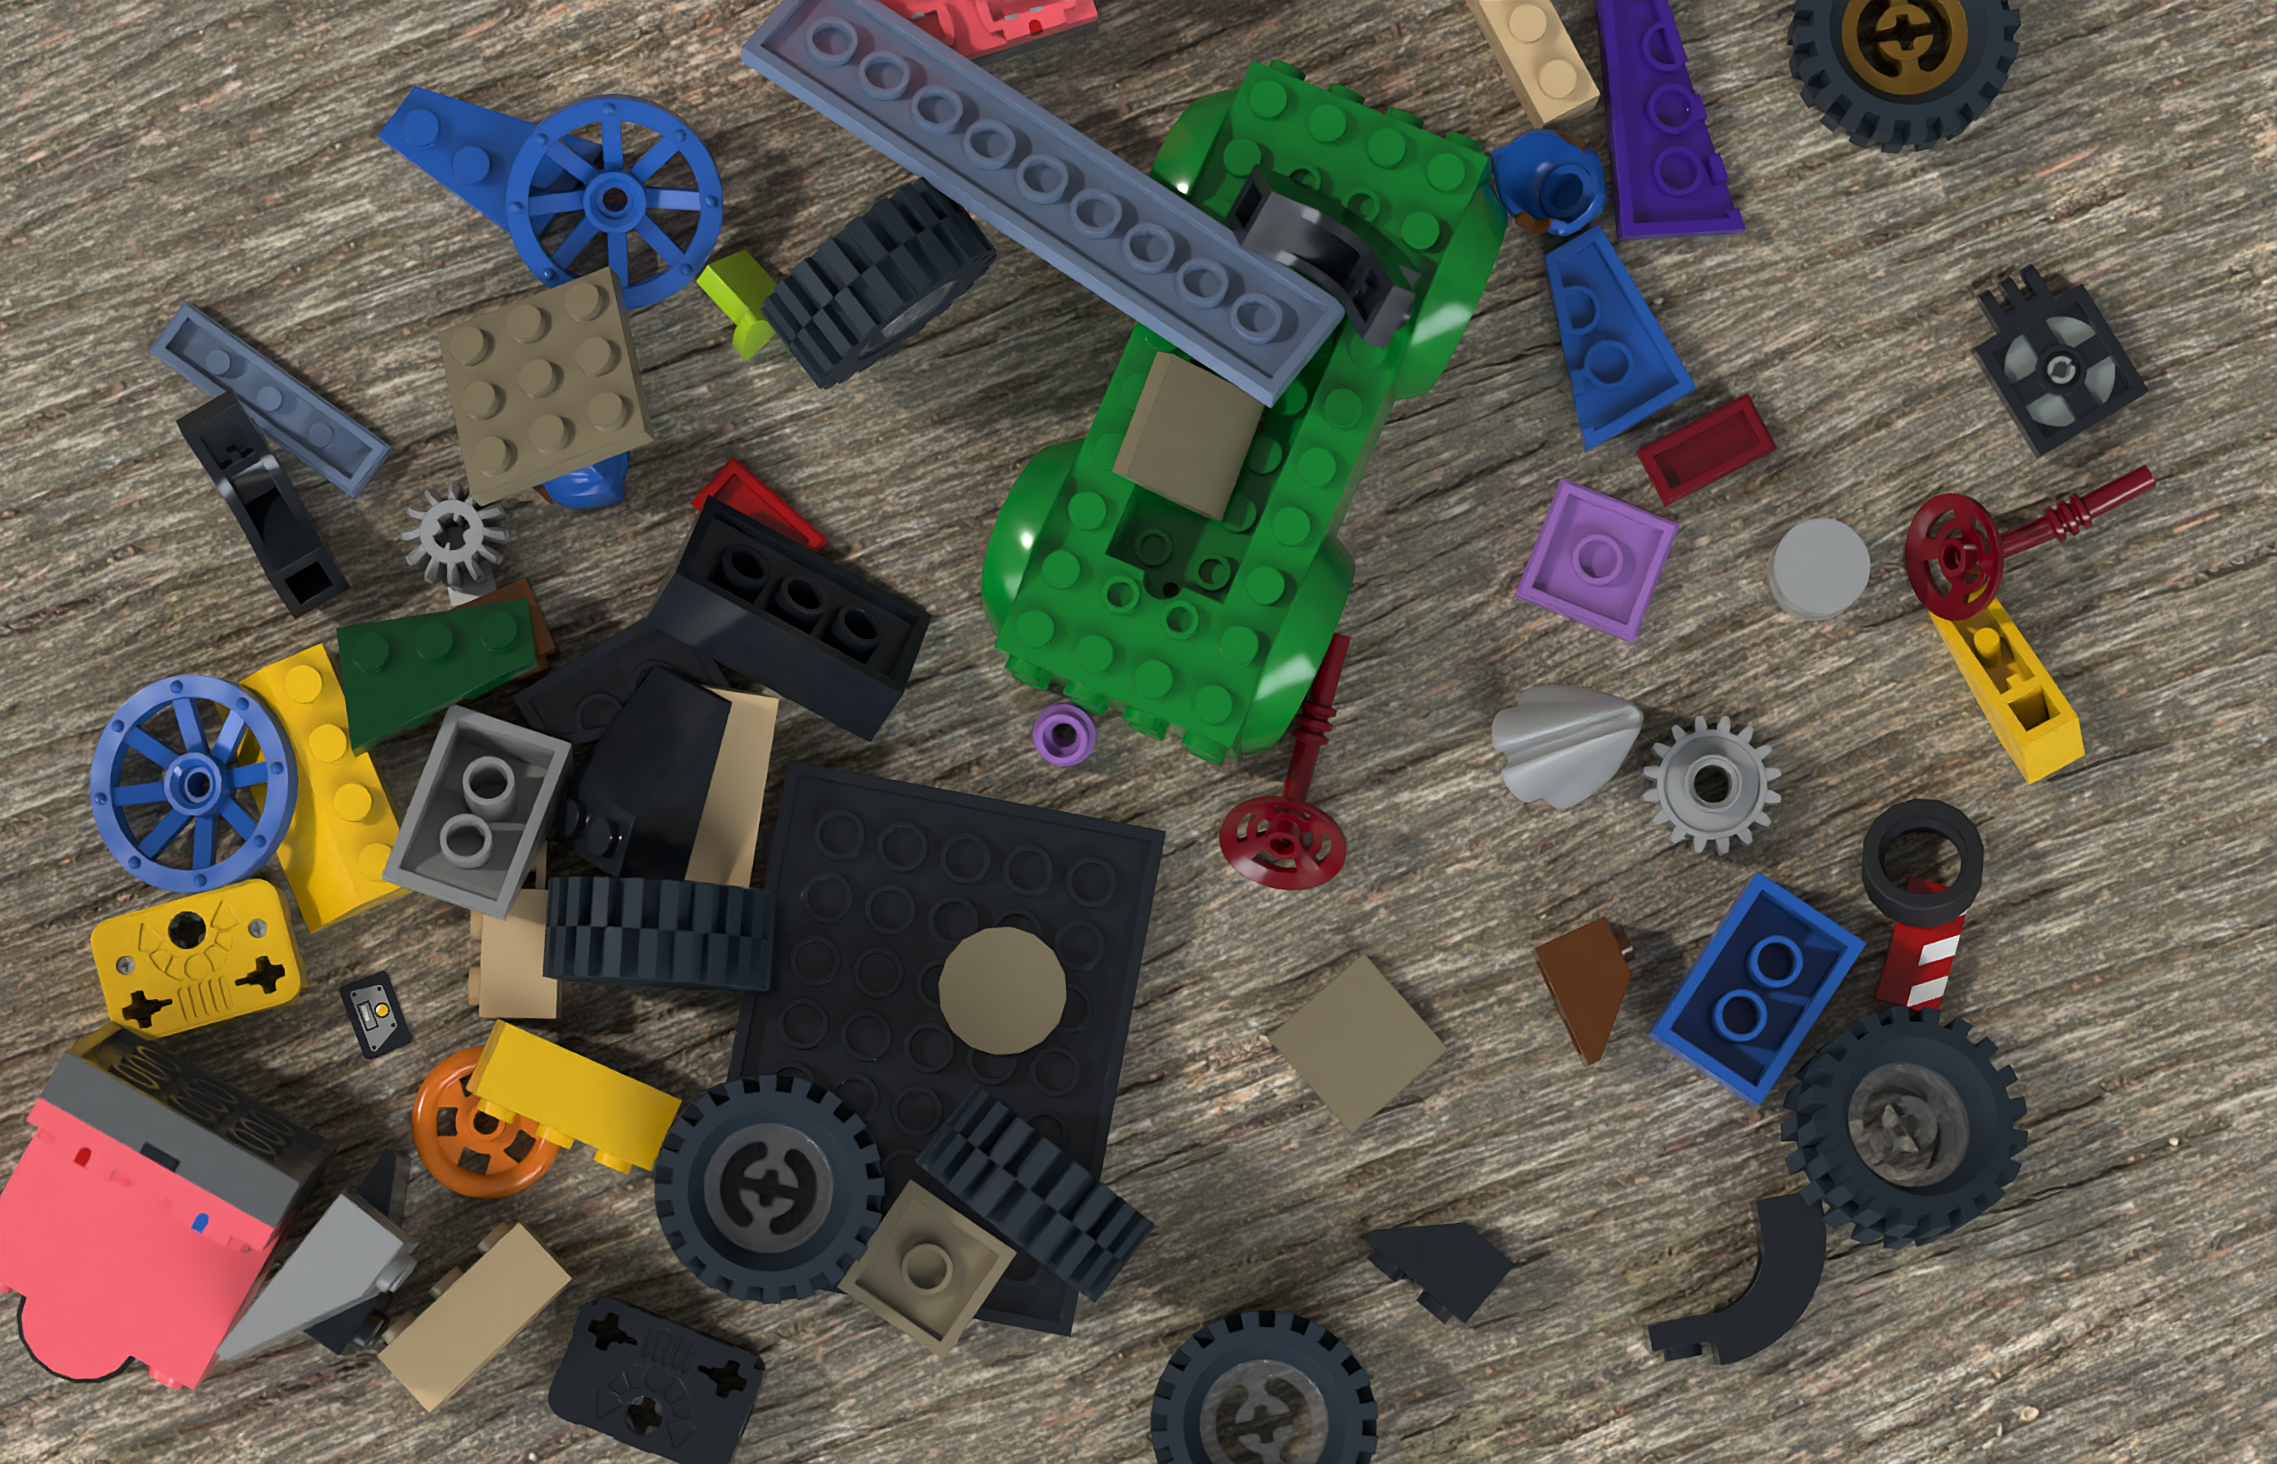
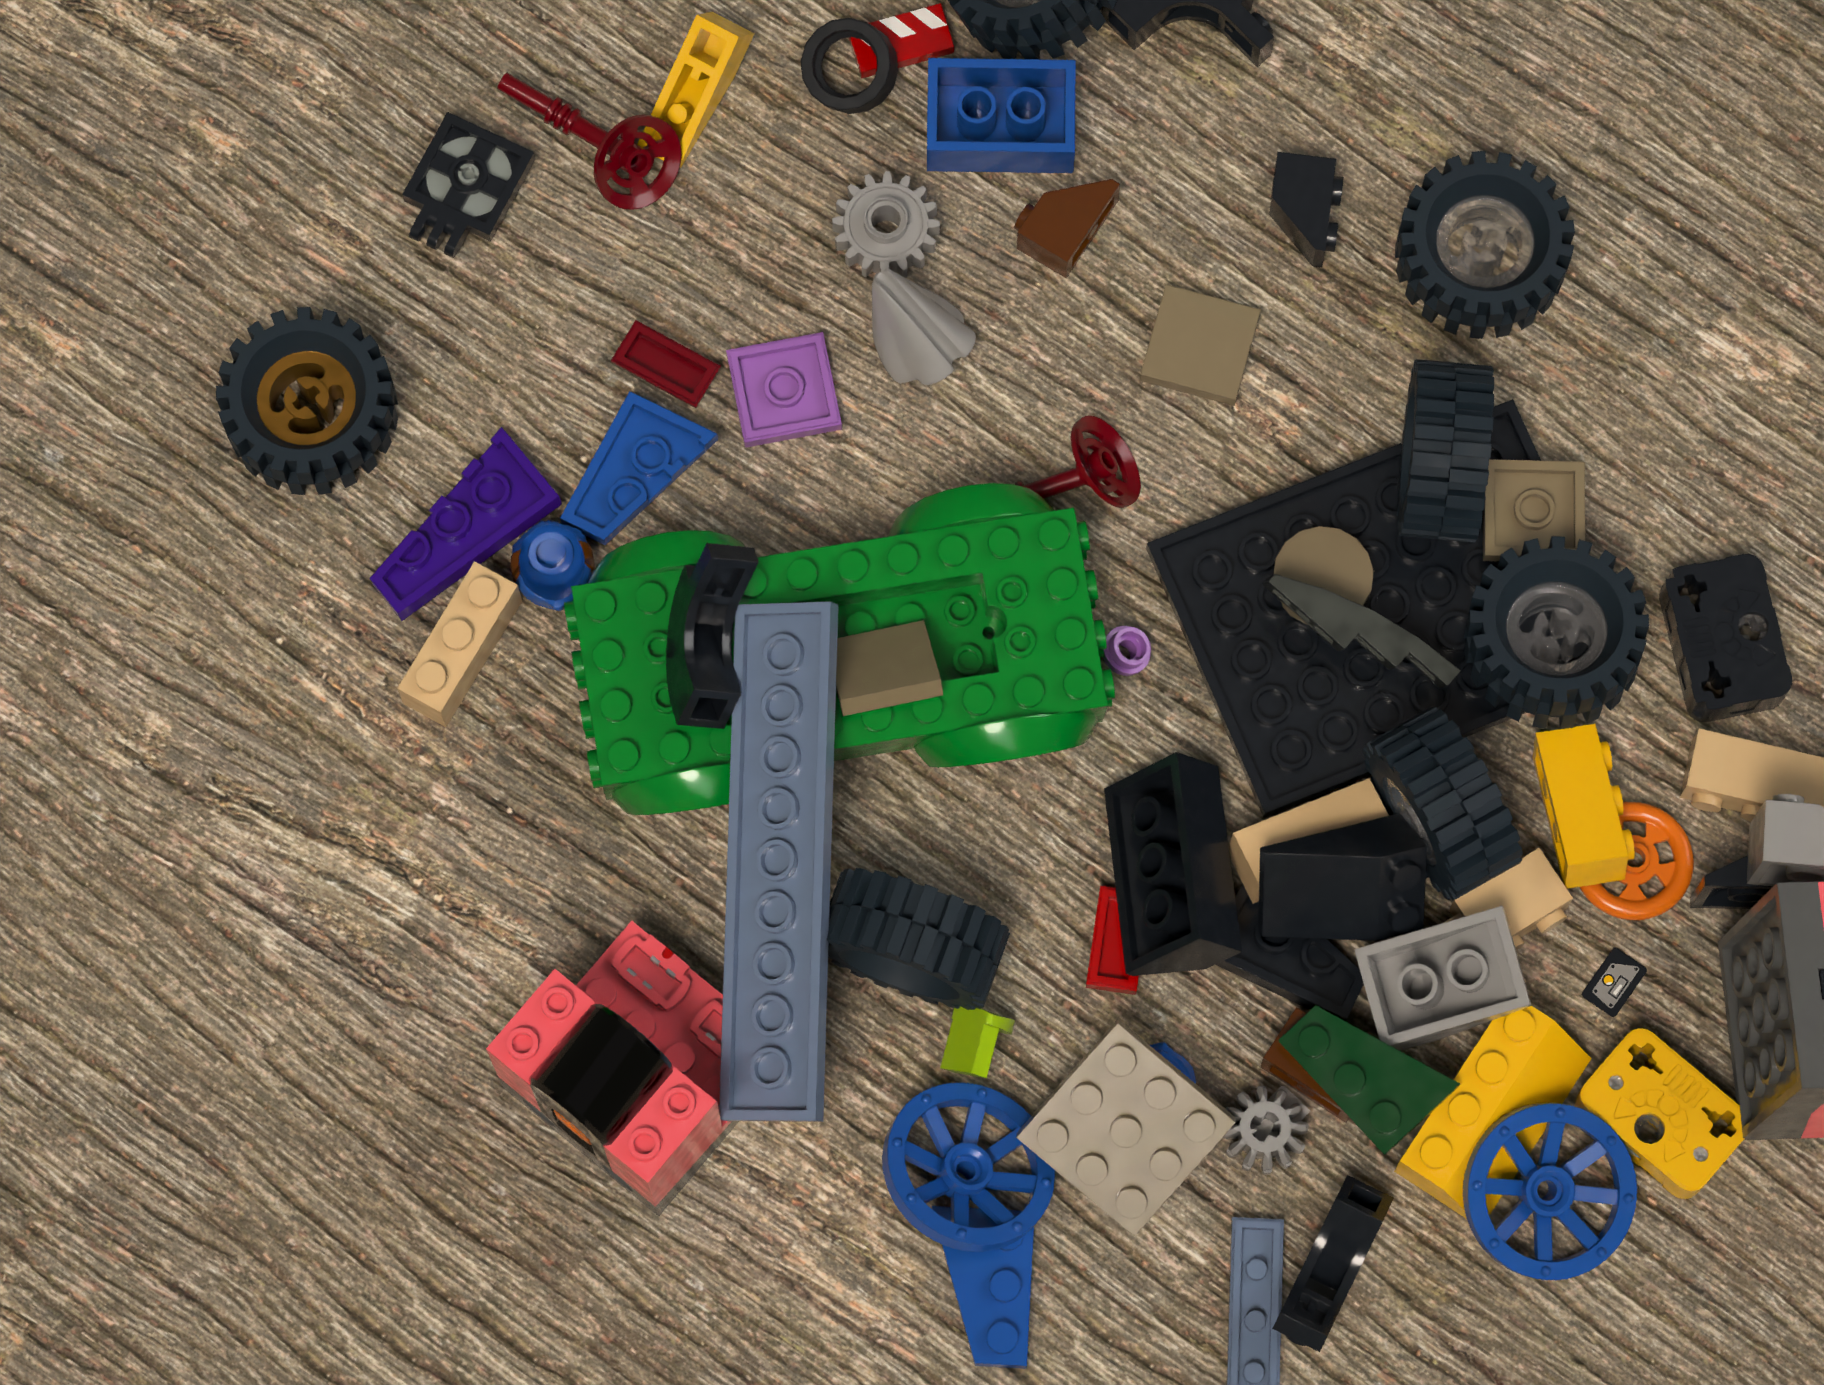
camera: 120 degrees left, 10 degrees down
(928, 971) = (1343, 620): none -> pearl dark grey slope
(1818, 569) = (700, 243): light grey piece -> none

